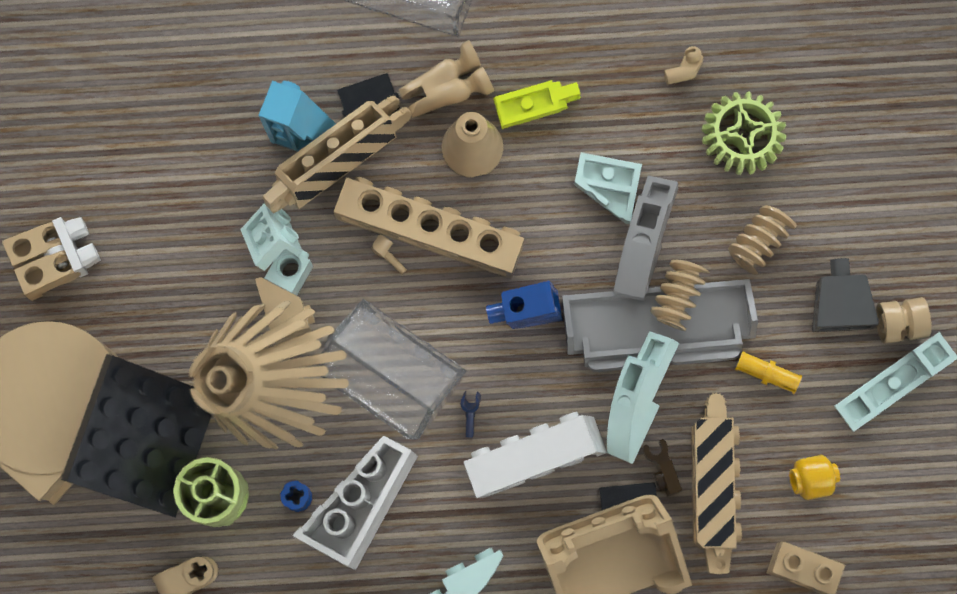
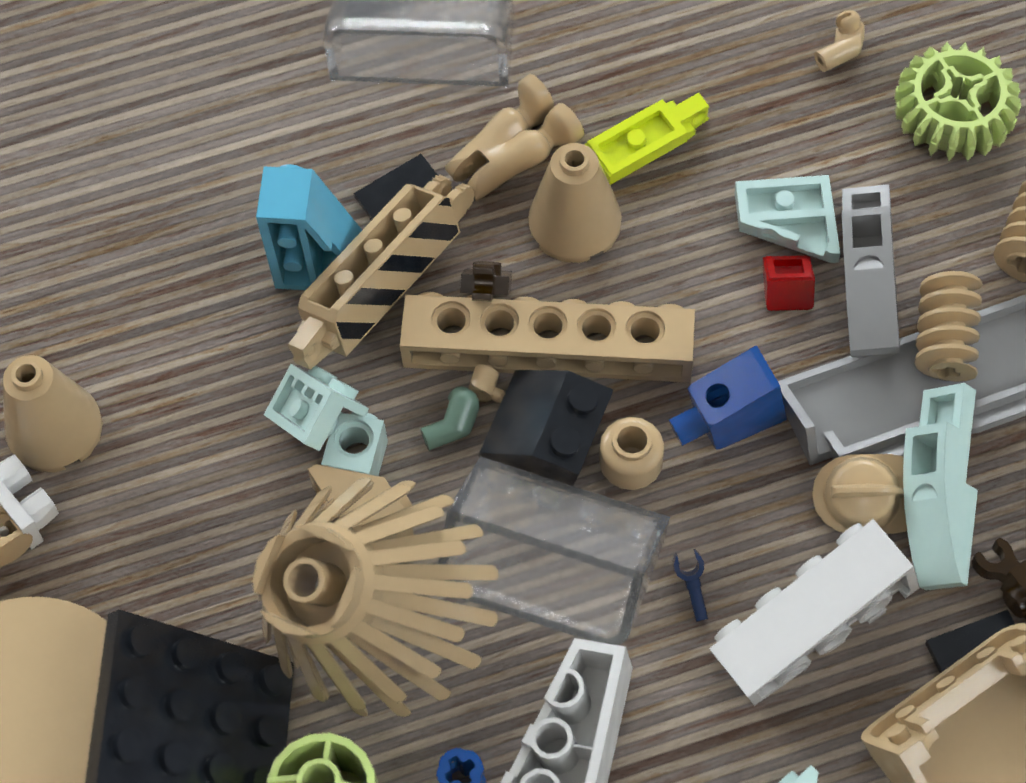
camera: 15 degrees left, 15 degrees down
(109, 197) = (47, 415): none -> tan cone
(359, 265) = (457, 421): none -> sand green arm
(400, 179) = (485, 281): none -> dark brown plate
(410, 288) = (547, 423): none -> black slope
(458, 311) = (631, 453): none -> tan head
(590, 384) = (861, 489): none -> tan piece
(593, 228) = (788, 282): none -> red slope

